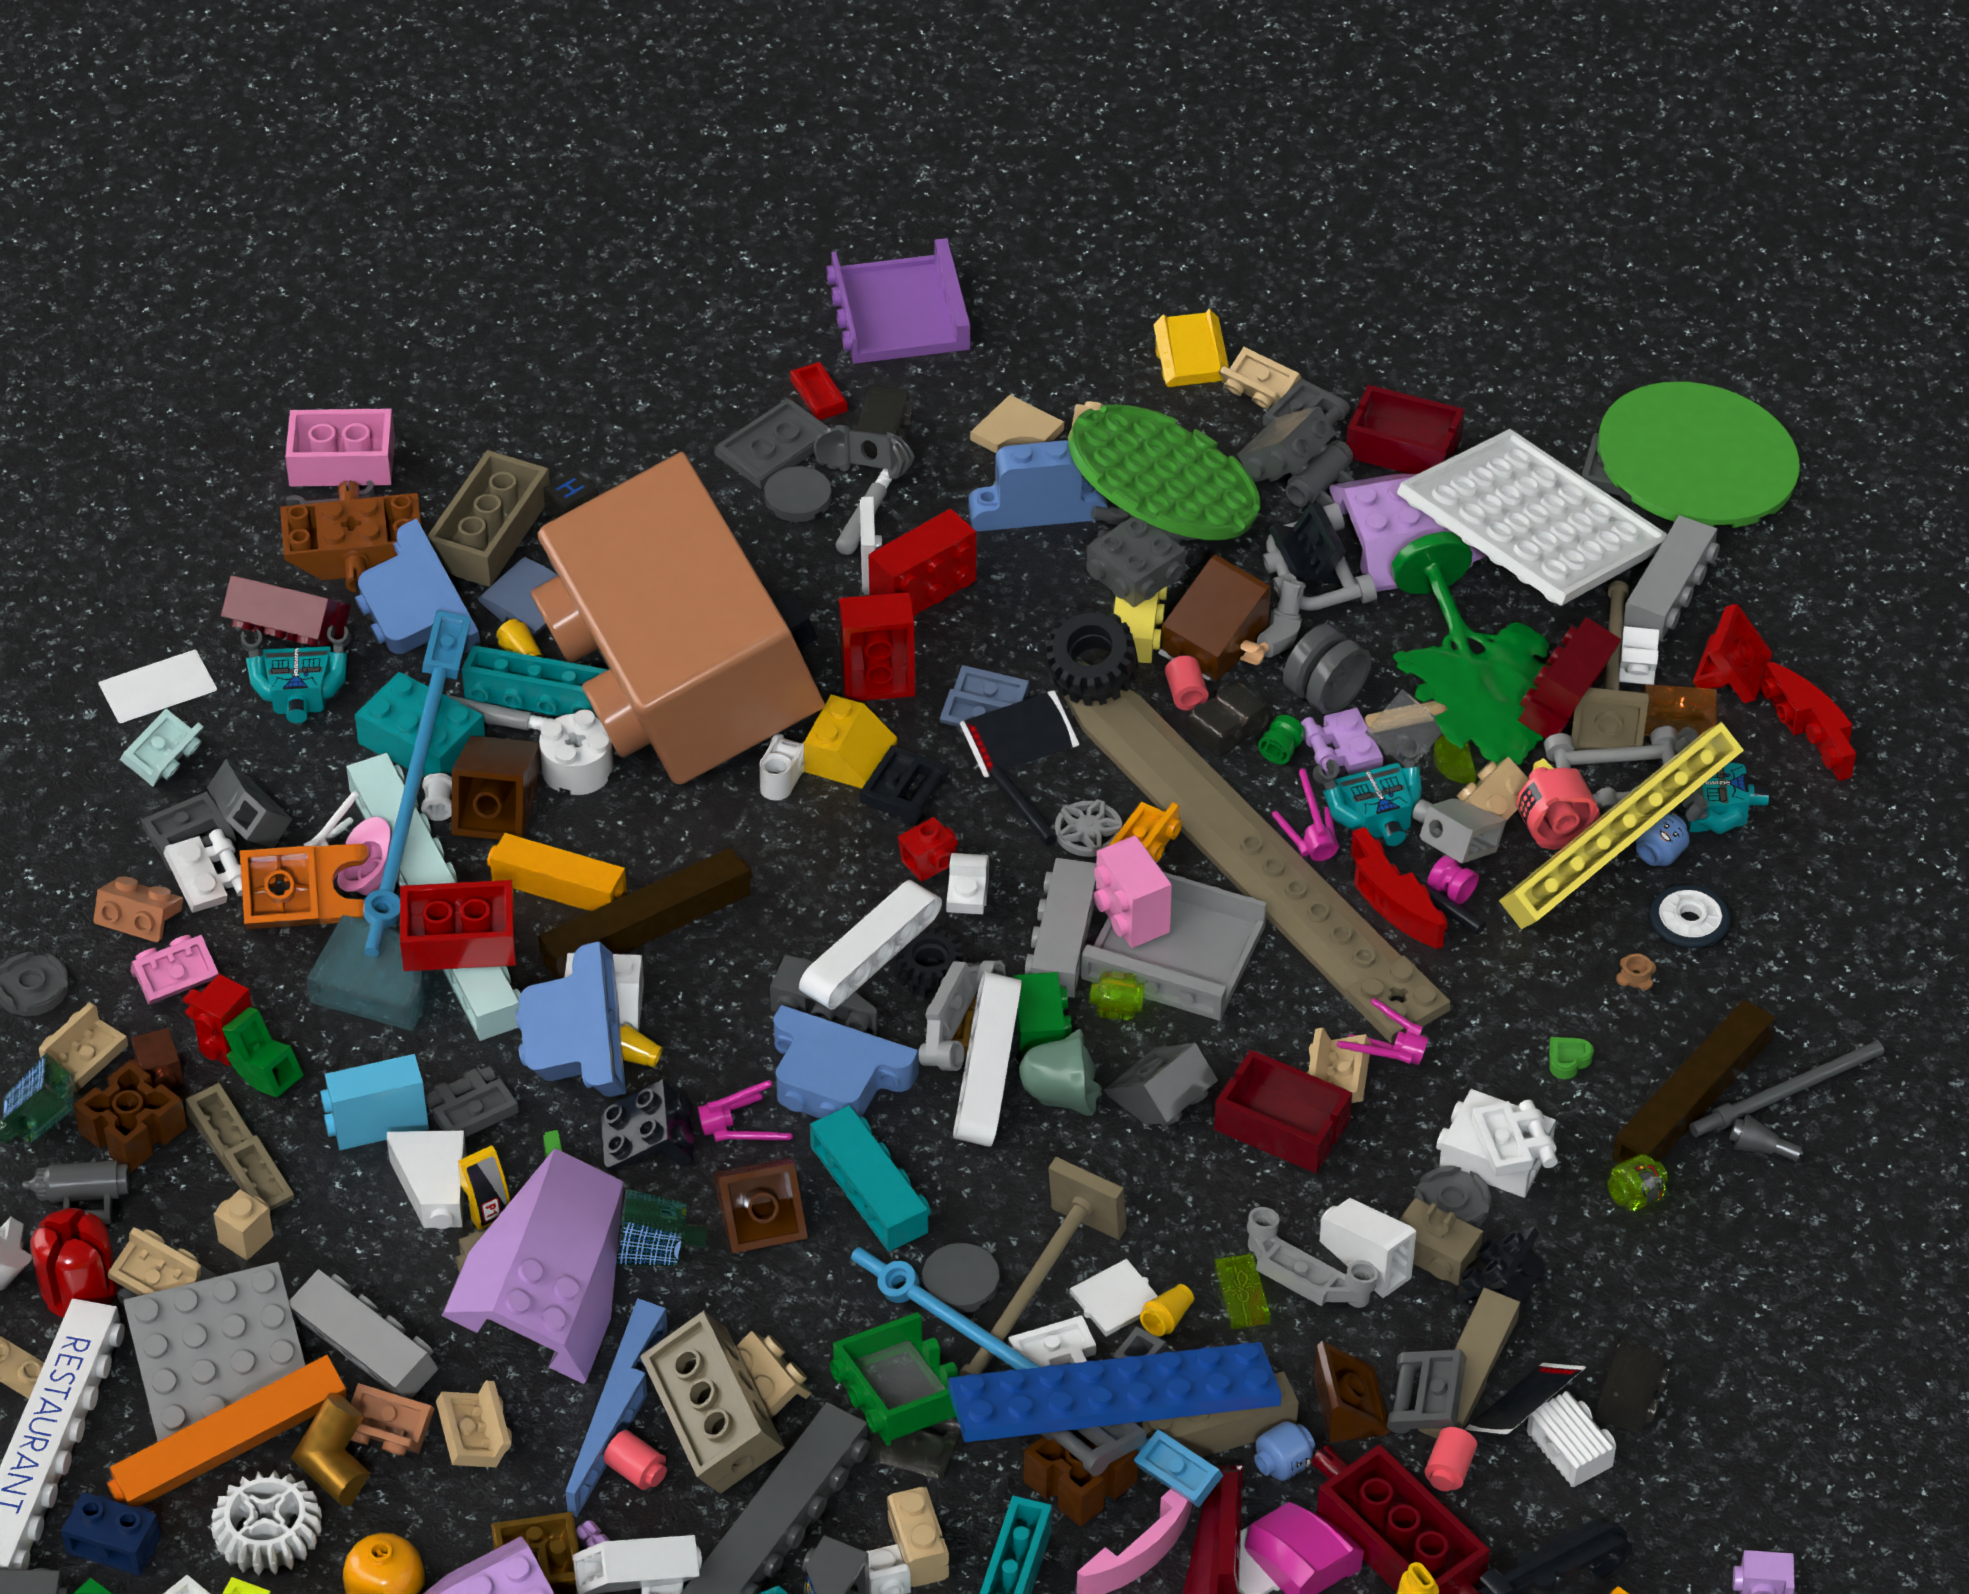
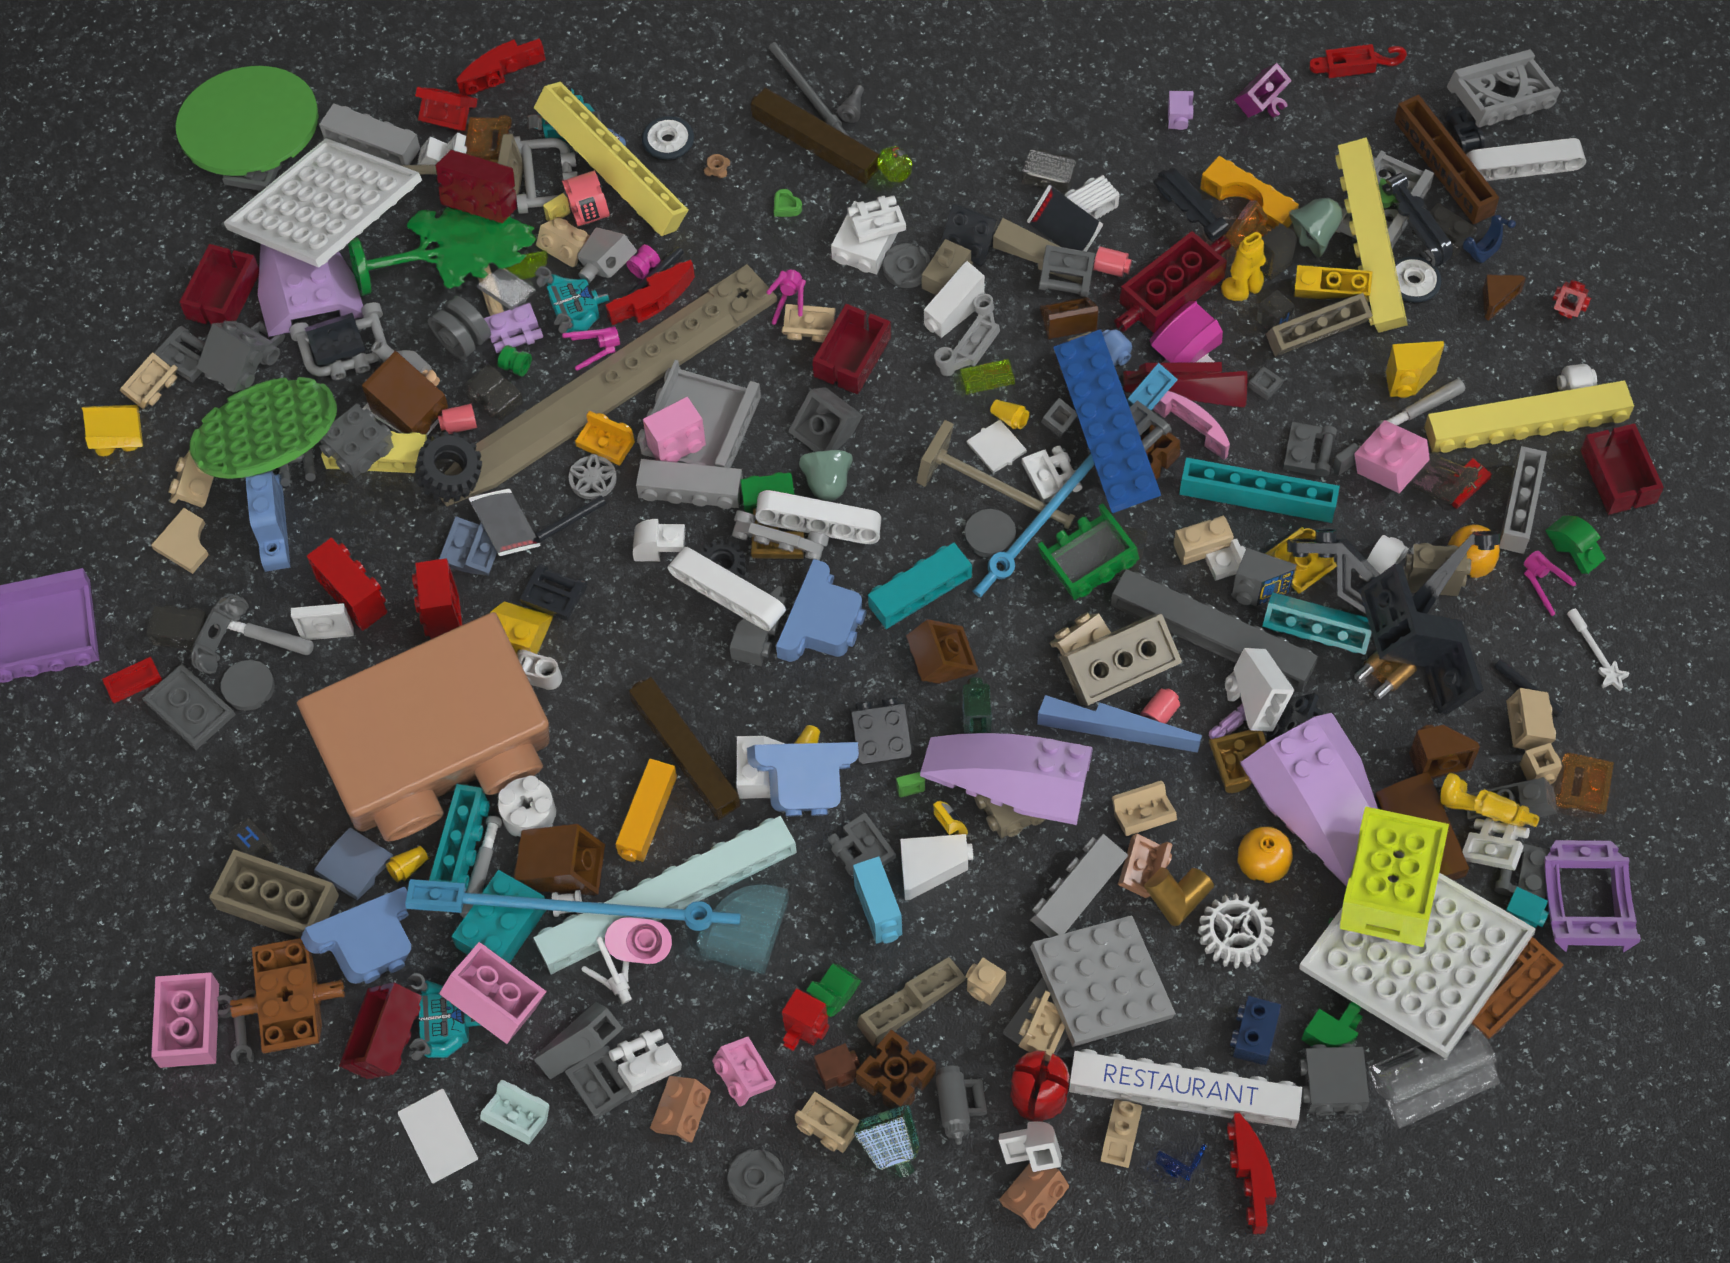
camera: 90 degrees left, 15 degrees up
(224, 1434) = (1174, 961): orange brick -> none
(311, 881) = (673, 982): orange brick -> none
(312, 708) = (492, 992): none -> bright pink brick
(457, 925) = (725, 853): red brick -> none
(717, 1116) = (867, 686): dark pink plant -> none
(927, 848) = (622, 567): red brick -> none
(1117, 995) = (752, 448): clear neon green head -> none

